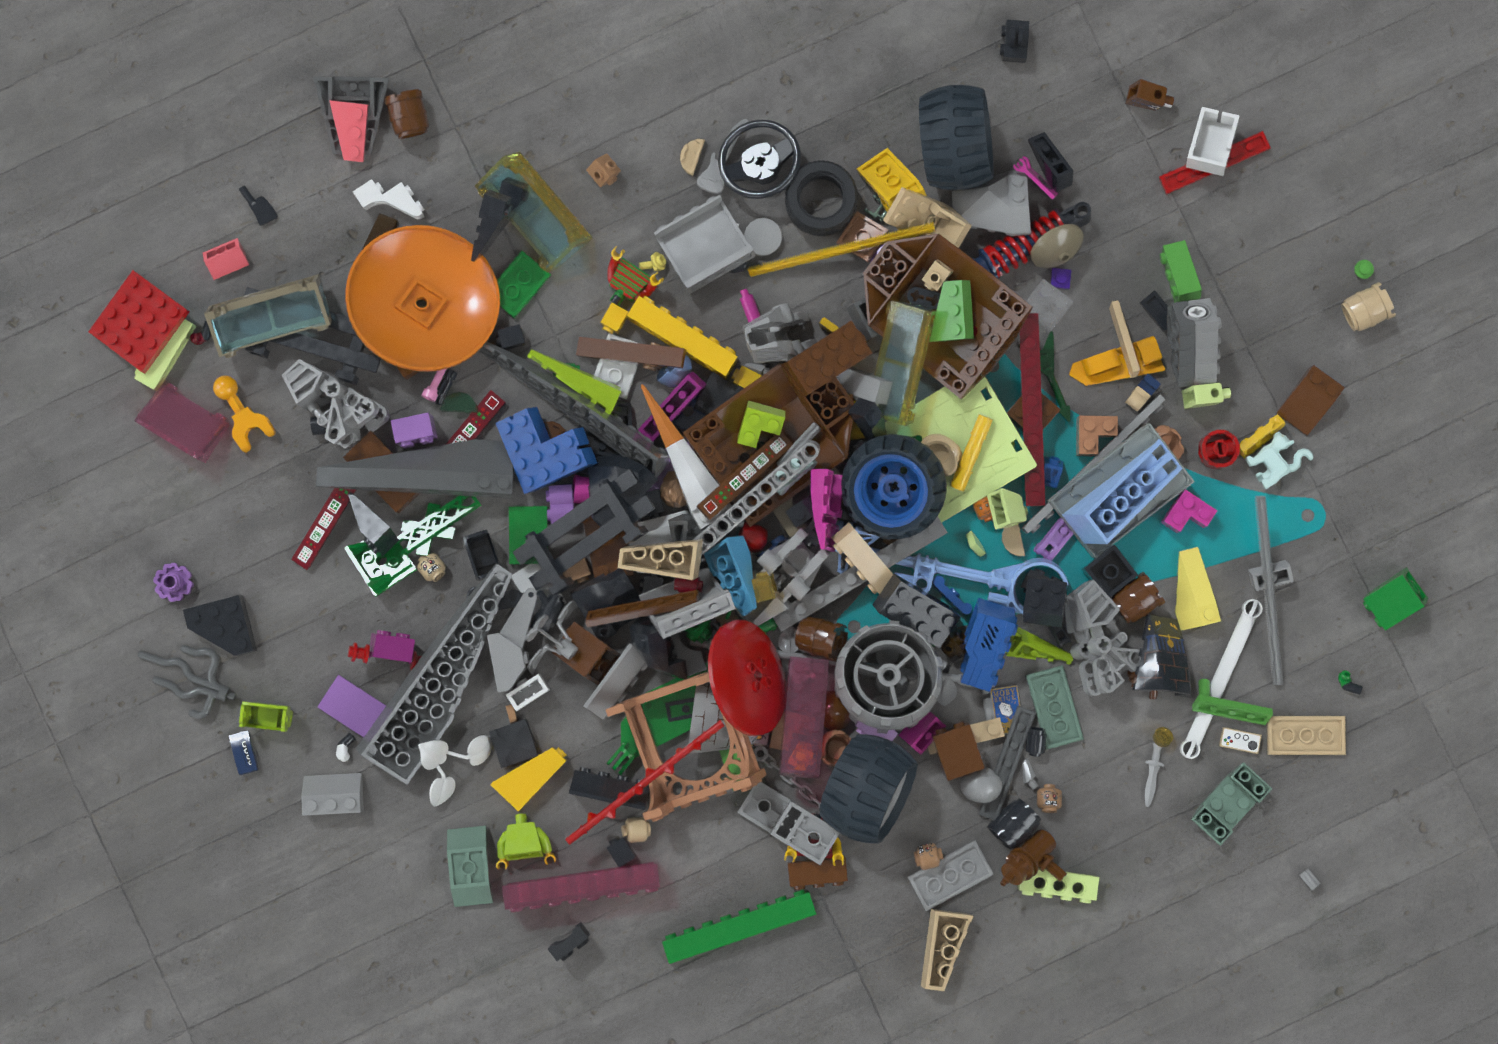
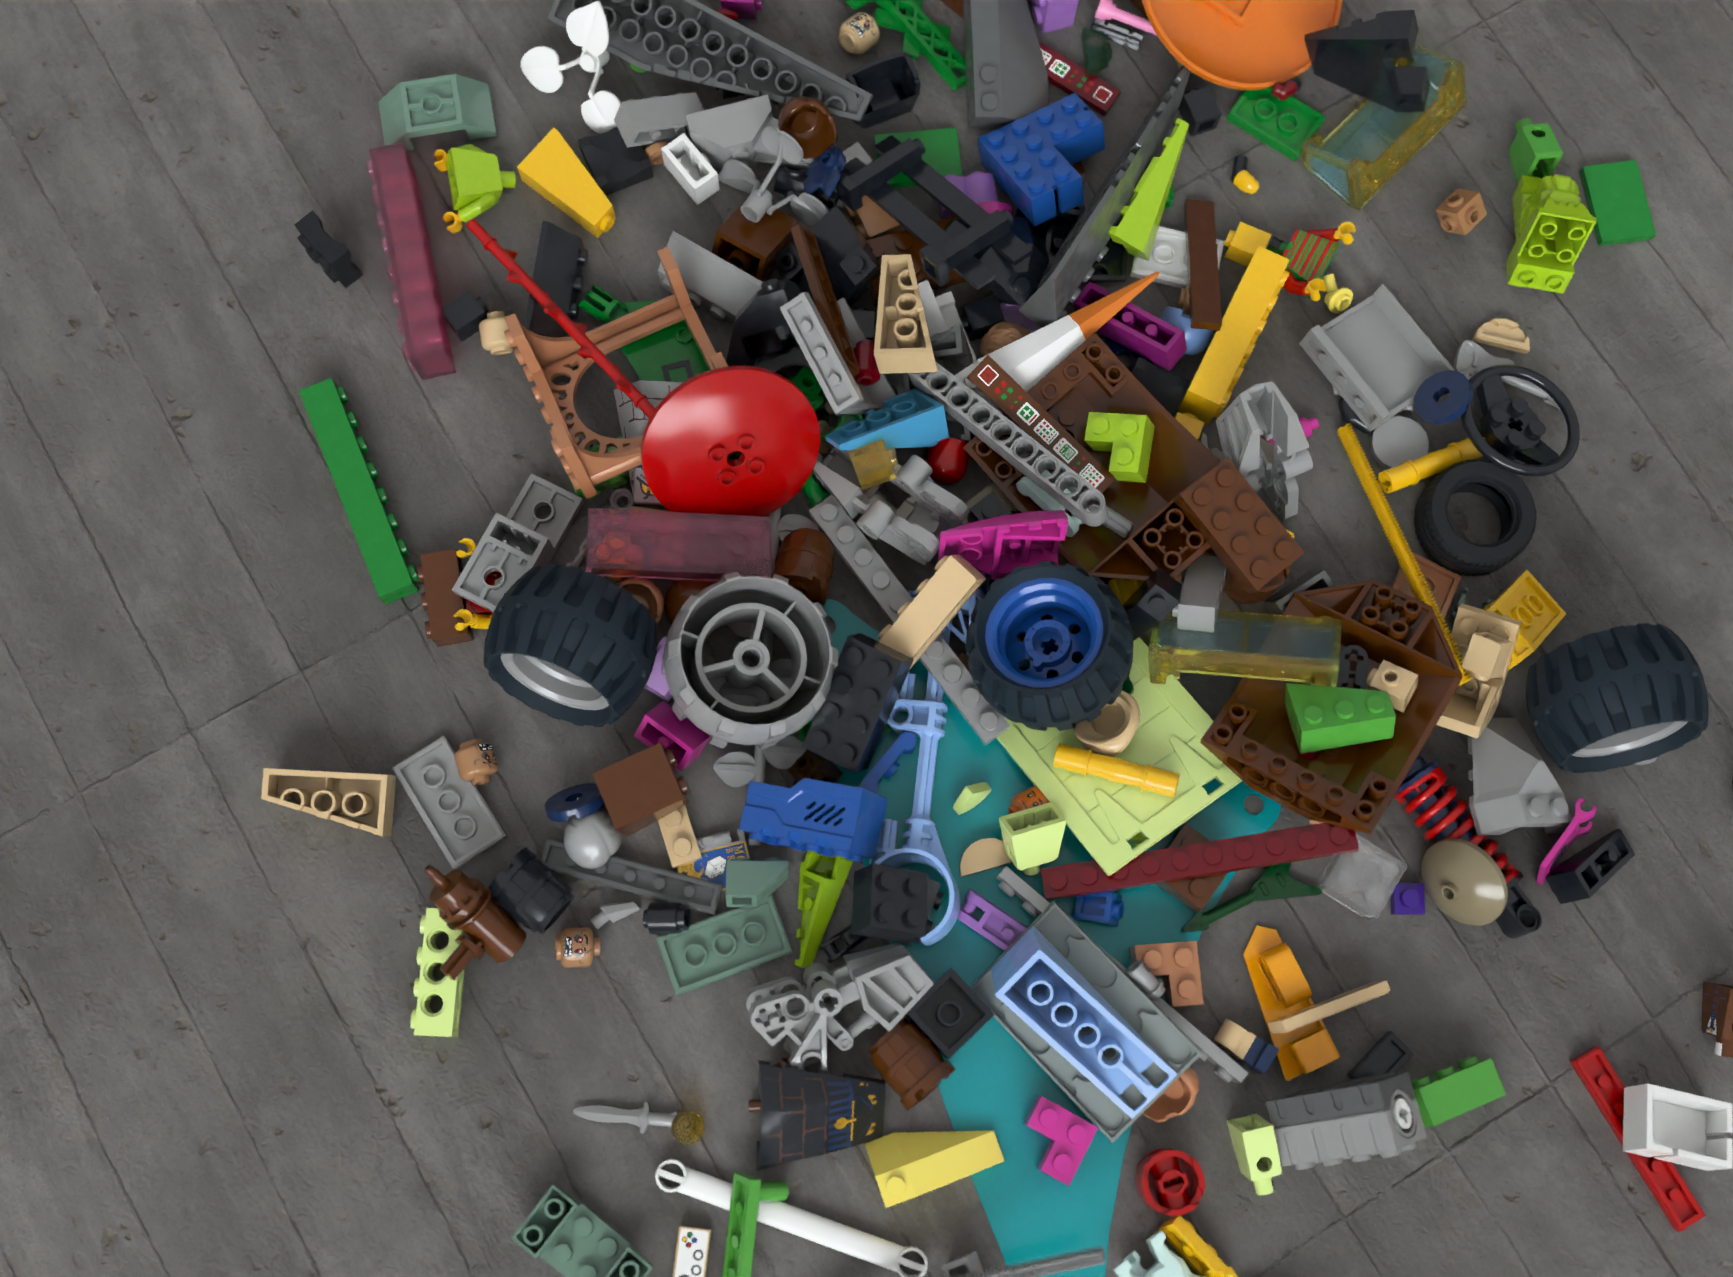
camera: 80 degrees right, 10 degrees down
(490, 710) = (655, 118): none -> light grey brick
(503, 276) = (1284, 91): none -> dark red arm
(515, 609) = (809, 125): none -> reddish brown piece
(547, 600) = (825, 171): none -> dark blue plate
(561, 315) = (1241, 178): none -> yellow arm
(564, 114) = (1534, 150): none -> bright green torso
(602, 61) = (1618, 202): none -> green tile
(625, 116) = (1548, 232): none -> lime brick
(738, 216) = (1434, 387): none -> dark blue tile
(782, 221) = (1426, 466): none -> yellow piece
(922, 212) = (1486, 655): none -> tan brick
(959, 802) = (575, 800): none -> dark blue tile
(1019, 687) = (753, 881): none -> sand green slope
(1100, 451) = (1145, 980): none -> light grey pin

